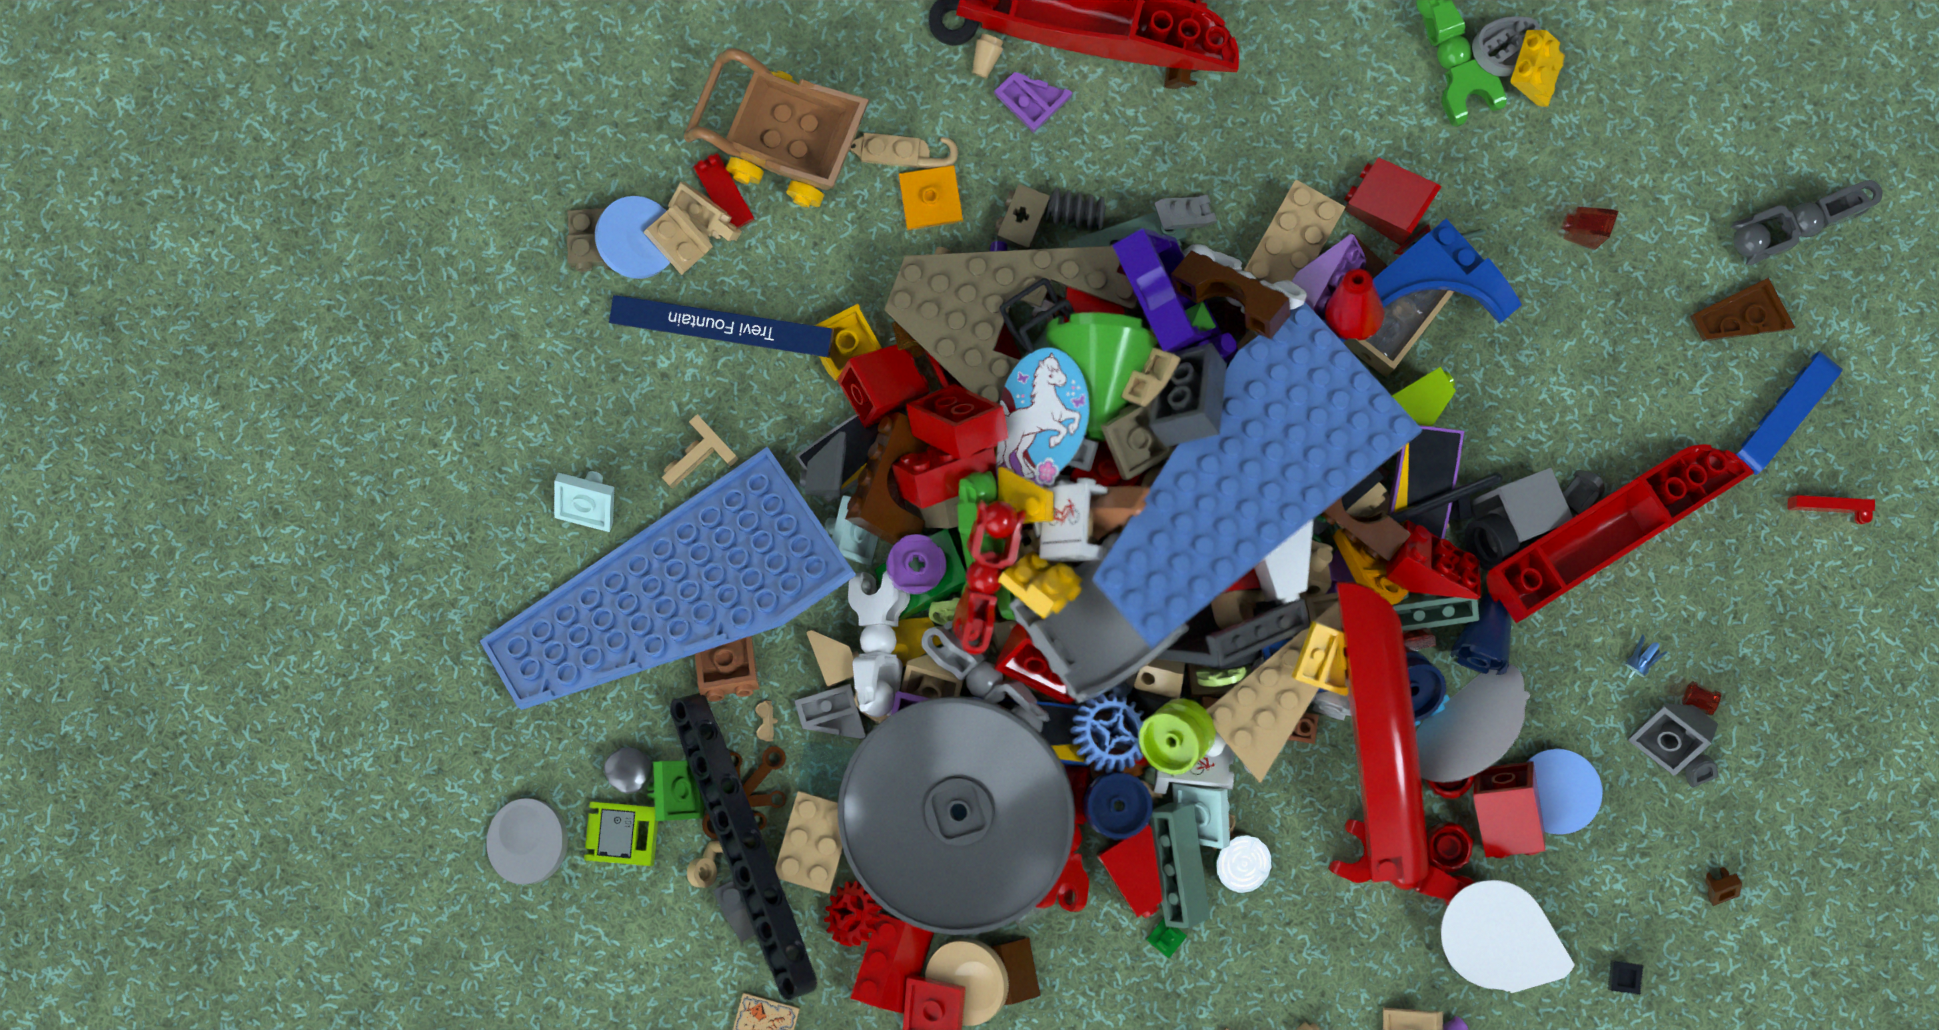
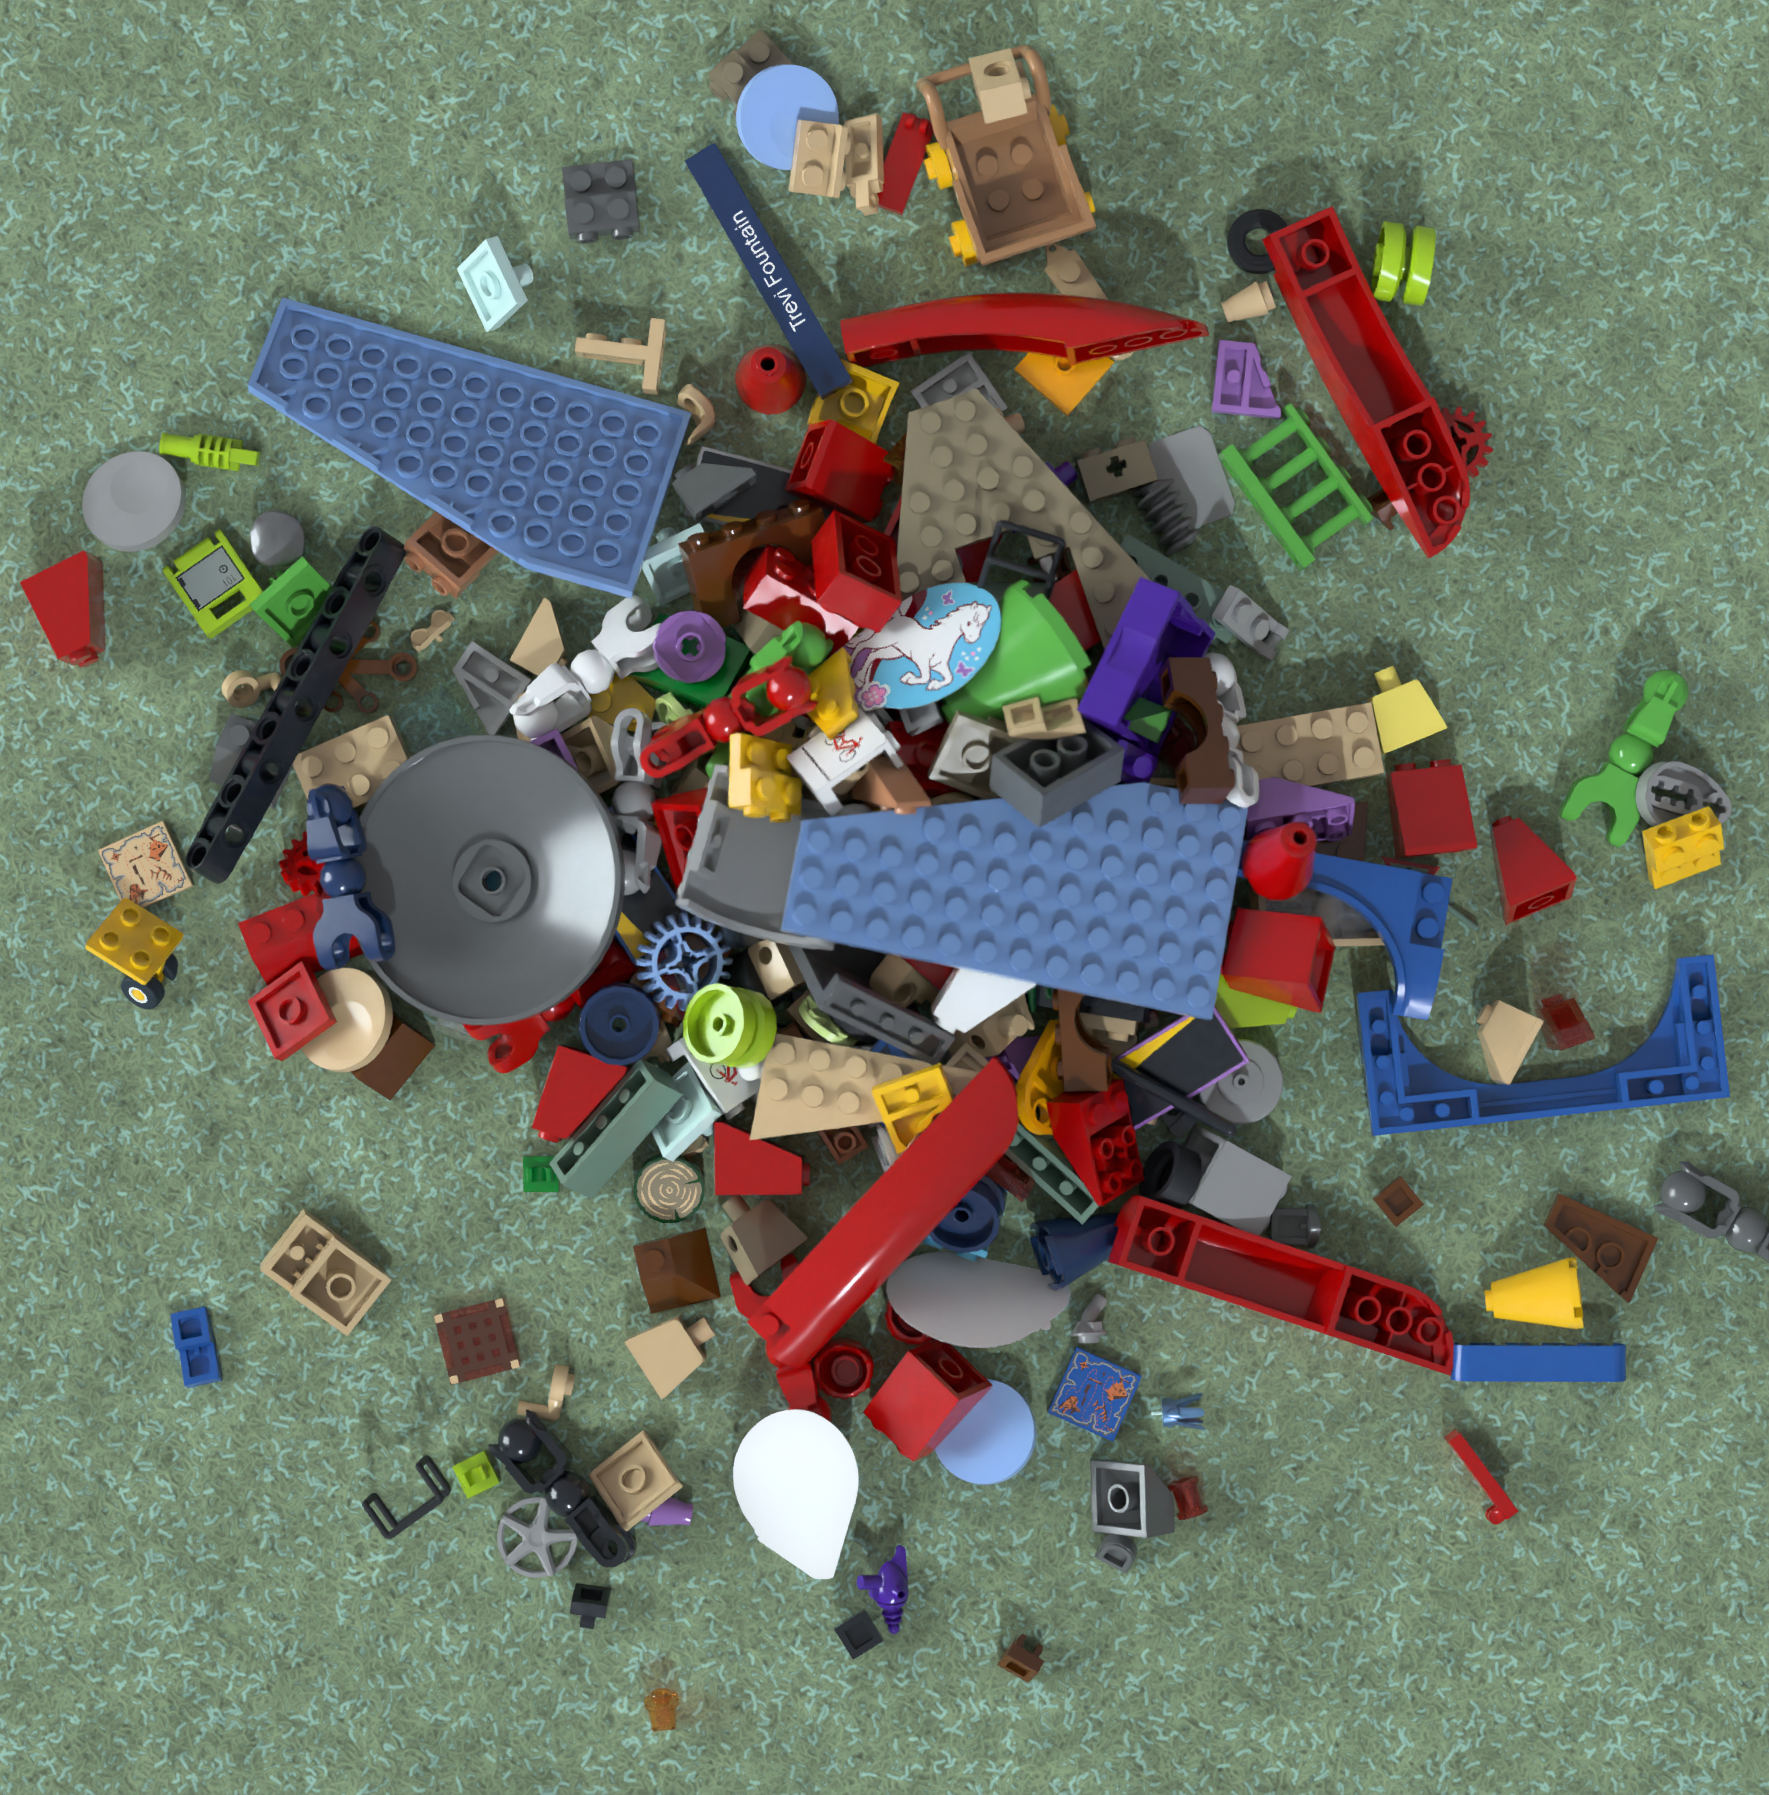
camera: 50 degrees right, 5 degrees up
(535, 767) = (209, 450): none -> lime hinge
(560, 937) = (71, 607): none -> red slope
(589, 394) = (601, 201): none -> dark grey plate
(731, 88) = (1000, 85): none -> tan brick
(769, 438) = (702, 411): none -> tan hair
(787, 390) = (774, 389): none -> red cone
(854, 890) = (335, 839): none -> dark blue piece
(880, 202) = (1013, 322): none -> red slope
(884, 272) = (955, 380): none -> light grey wing
(1061, 169) = (1196, 472): none -> light grey piece
(1134, 144) = (1280, 519): none -> bright green fence
(1276, 797) = (755, 1165): none -> red slope
(1298, 901) = (677, 1270): none -> reddish brown slope
(1315, 165) = (1402, 712): none -> light yellow torso
(1321, 831) = (758, 1237): none -> dark tan torso
(1347, 949) = (670, 1351): none -> tan torso
(1413, 359) = (1279, 957): none -> red slope
(1474, 171) = (1527, 871): none -> red slope
(1479, 449) = (1248, 1091): none -> light grey wheel
(1545, 672) = (1088, 1329): none -> light grey plate
(1571, 268) = (1505, 1038): none -> tan slope
(1588, 703) = (1094, 1393): none -> blue tile
(1611, 934) = (889, 1588): none -> dark purple piece
(1618, 416) = (1397, 1201): none -> reddish brown tile
(1666, 183) = (1673, 1065): none -> blue piece
(1748, 376) = (1539, 1296): none -> yellow cone

